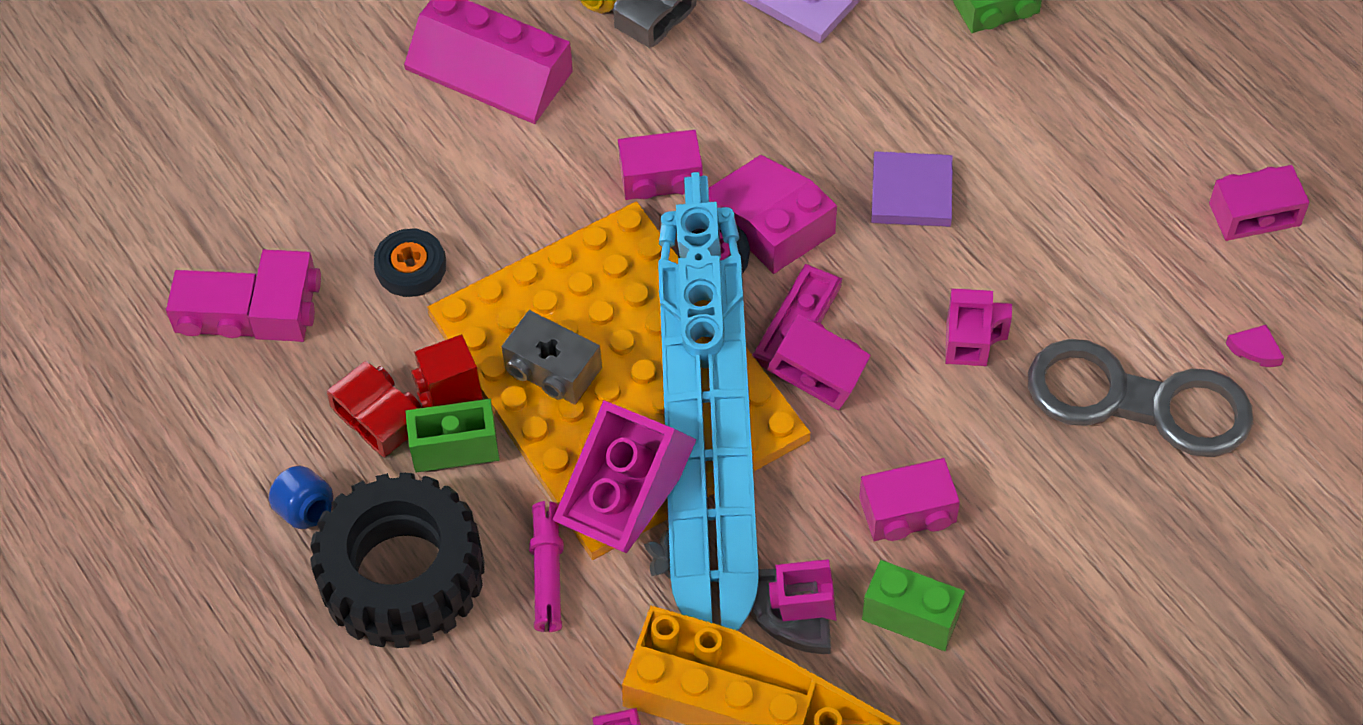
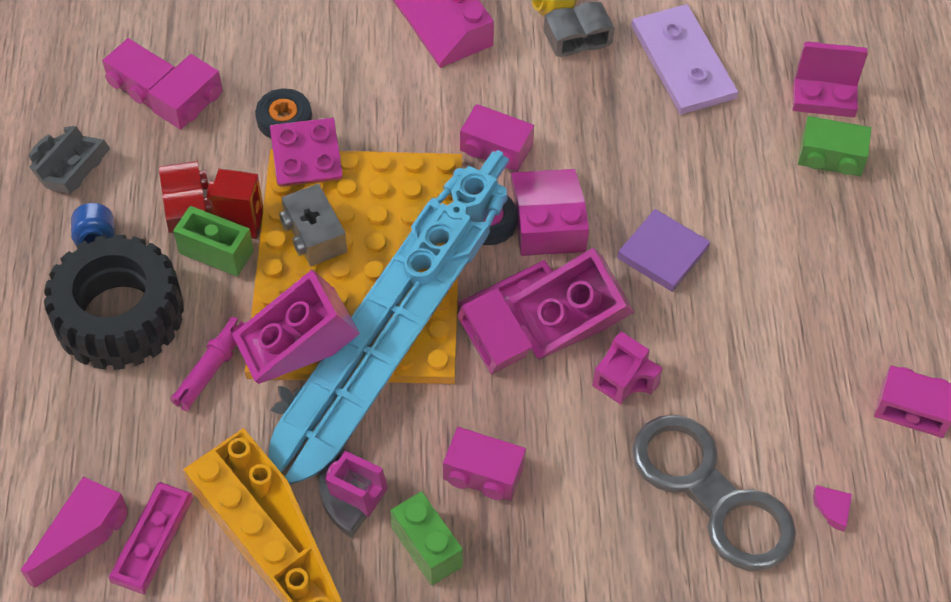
camera: 30 degrees right, 0 degrees up
(206, 442) = (67, 159): none -> dark grey slope
(475, 287) = (306, 152): none -> dark pink bracket
(872, 289) = (571, 304): none -> dark pink slope

